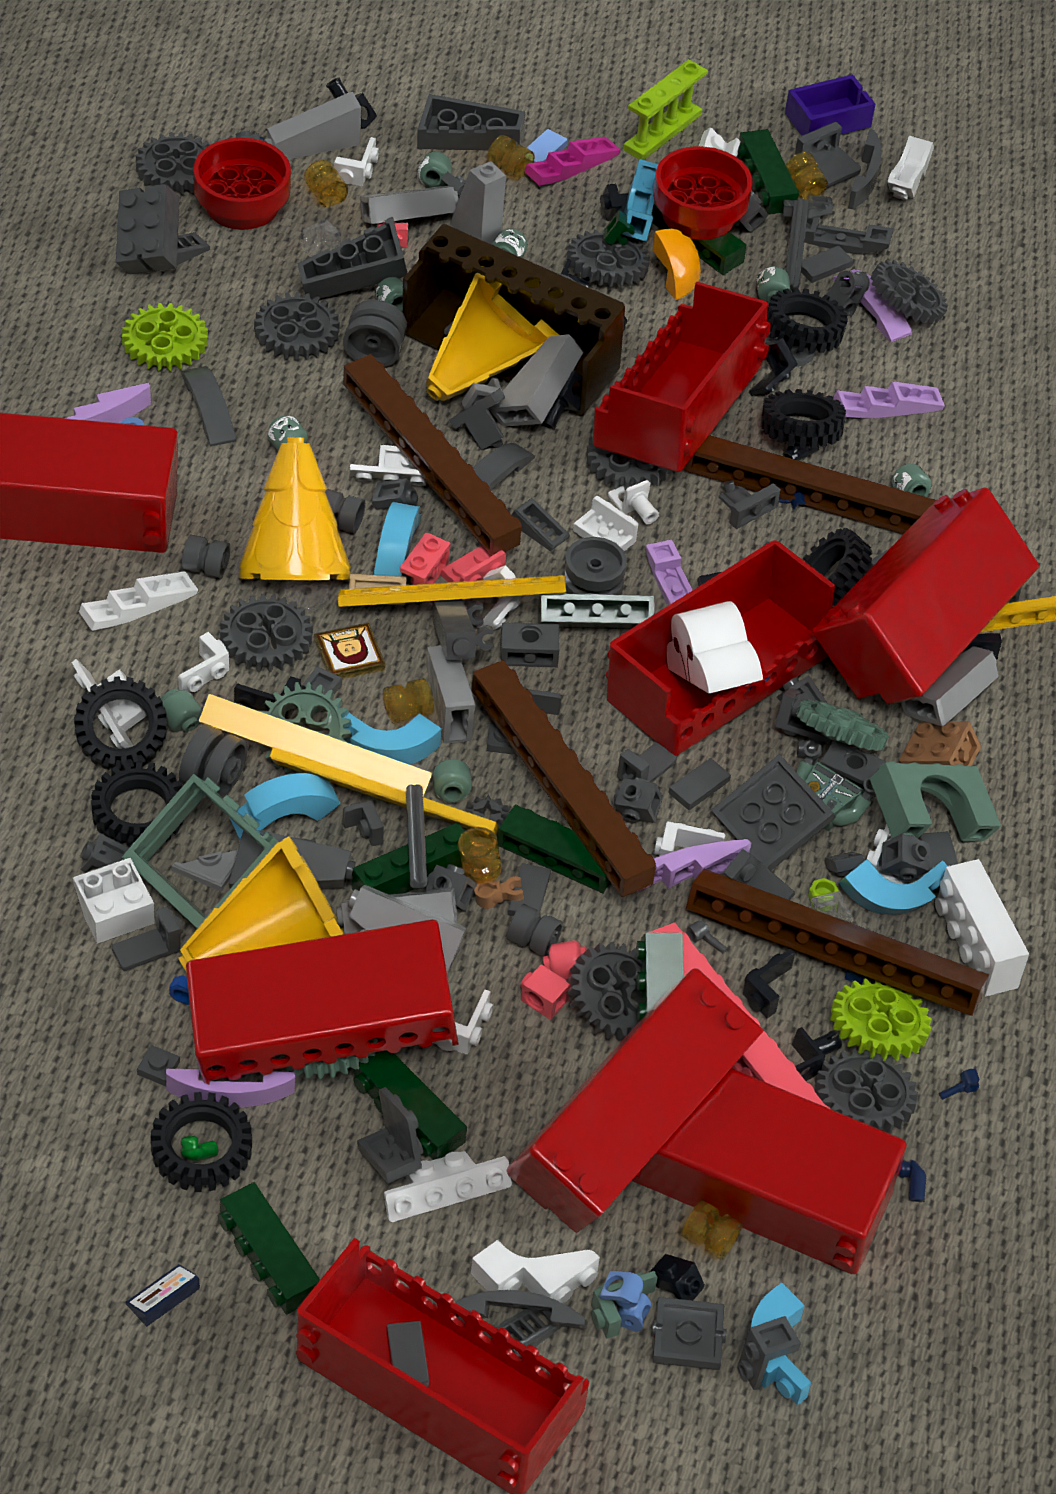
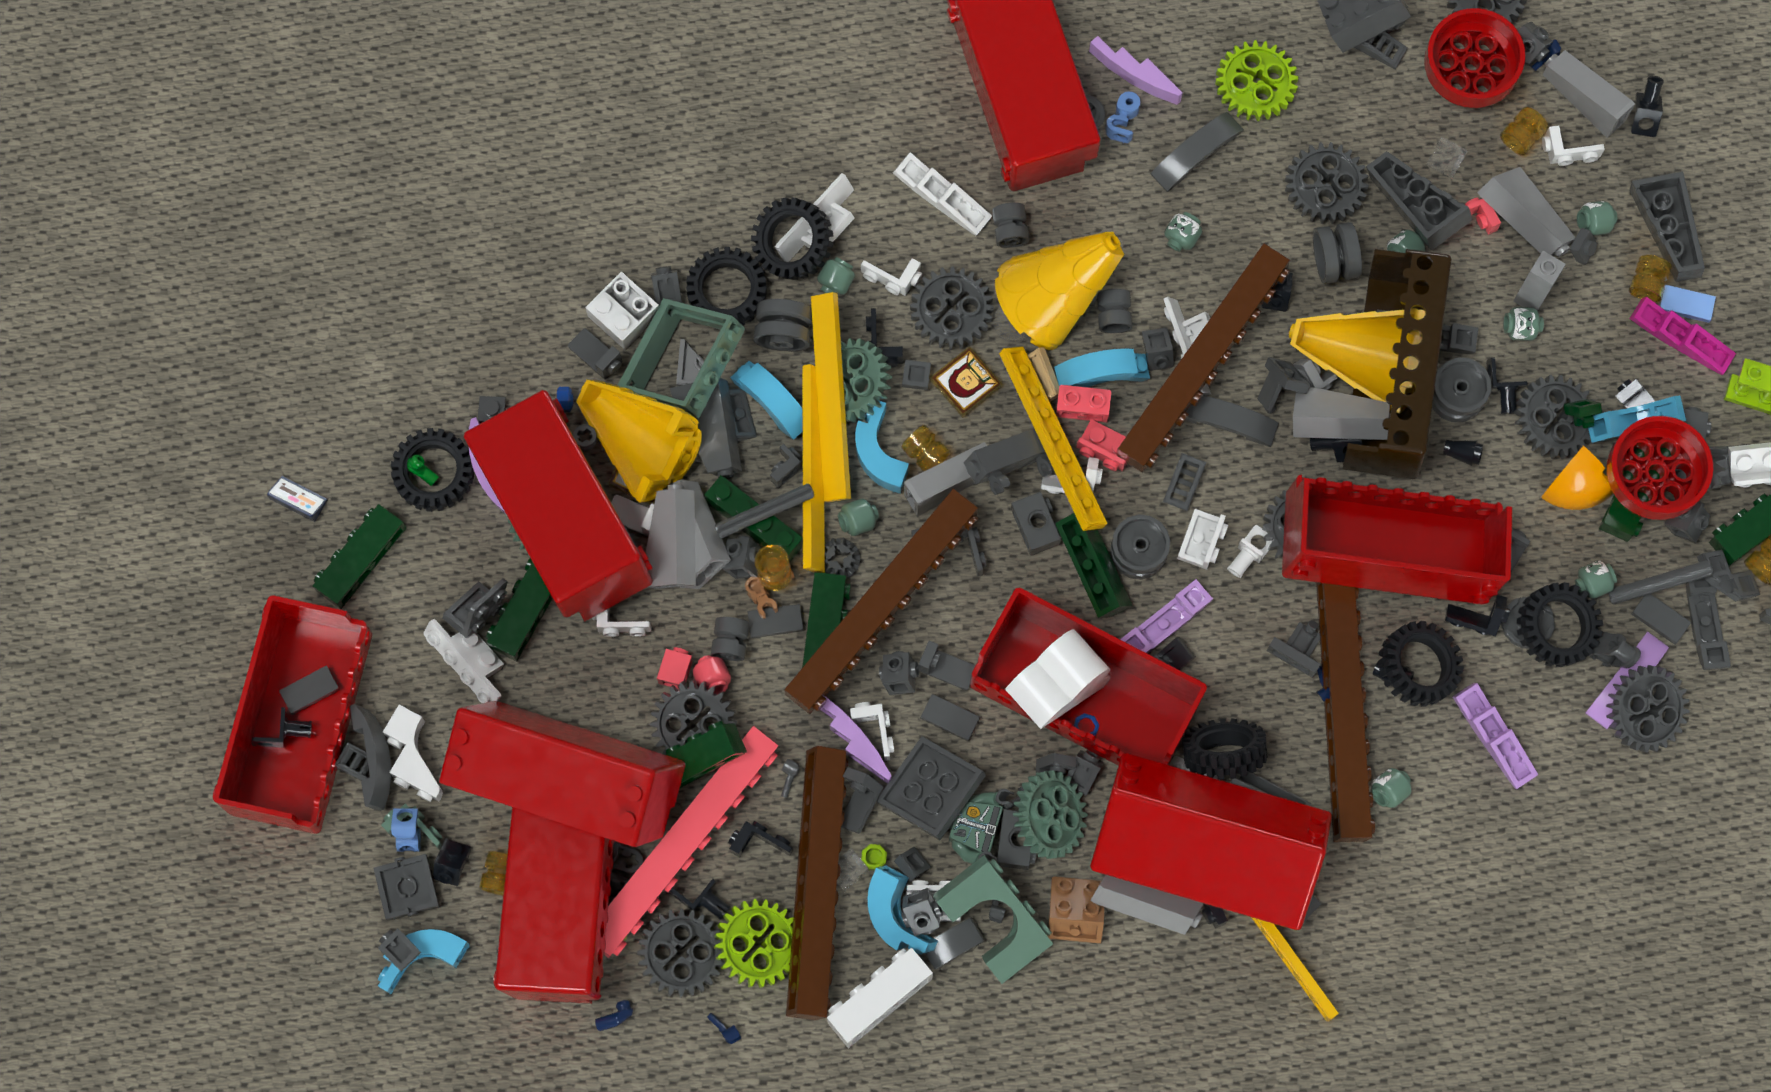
camera: 75 degrees right, 25 degrees up
(449, 1383) = (287, 728): none -> black bracket

